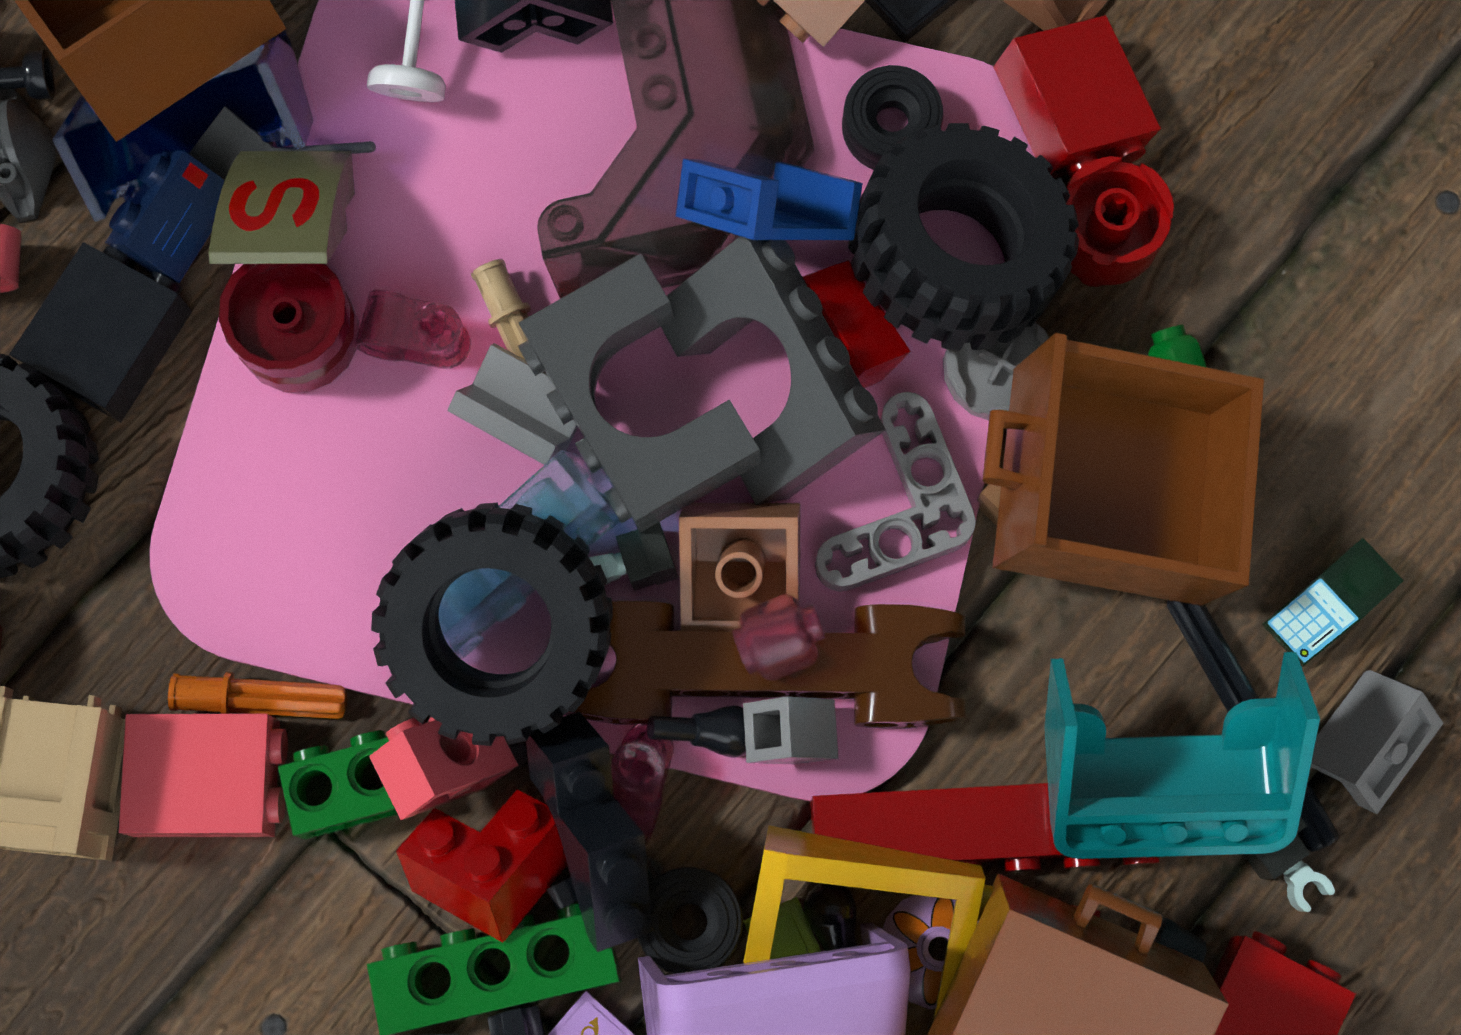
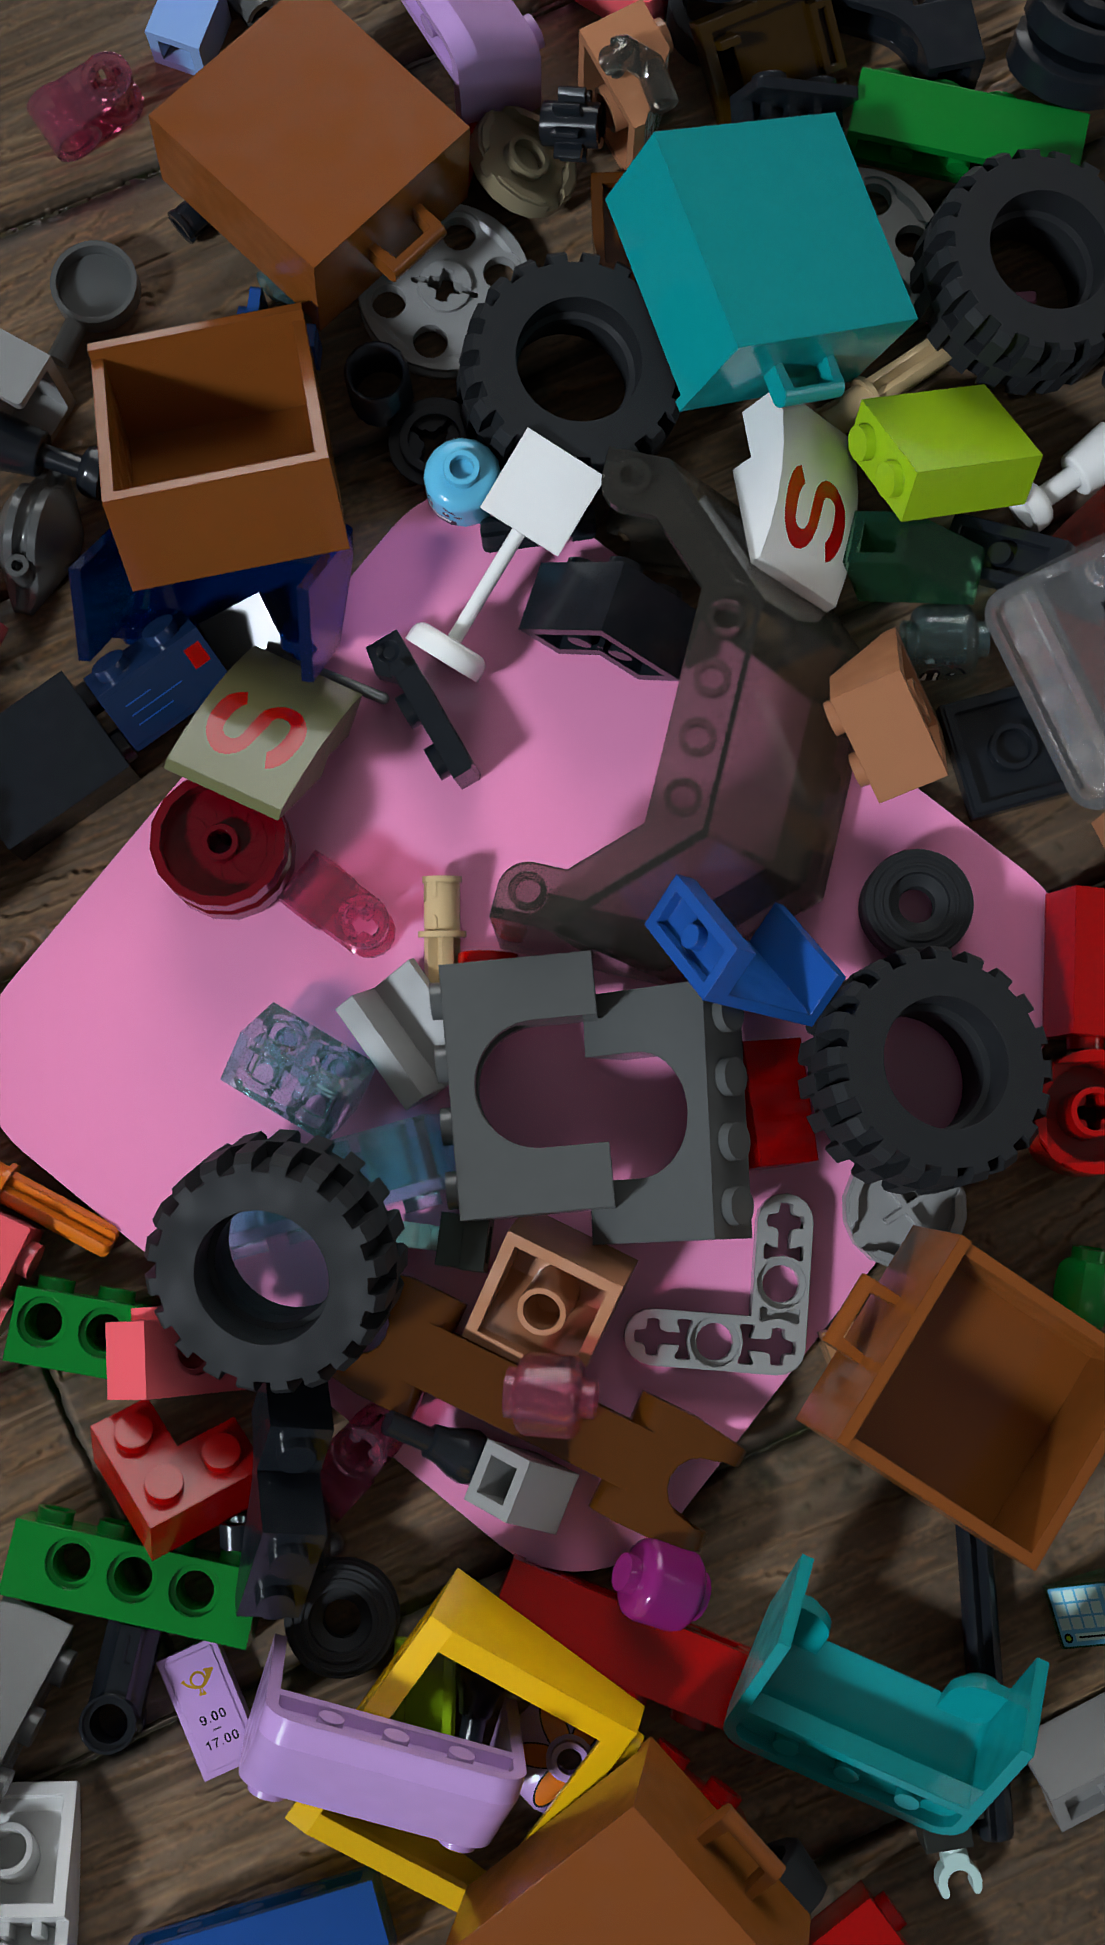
camera: 25 degrees right, 5 degrees up
(407, 139) = (420, 706): none -> black hinge
(437, 474) = (298, 1071): none -> clear light blue brick
(947, 756) = (661, 1585): none -> magenta head

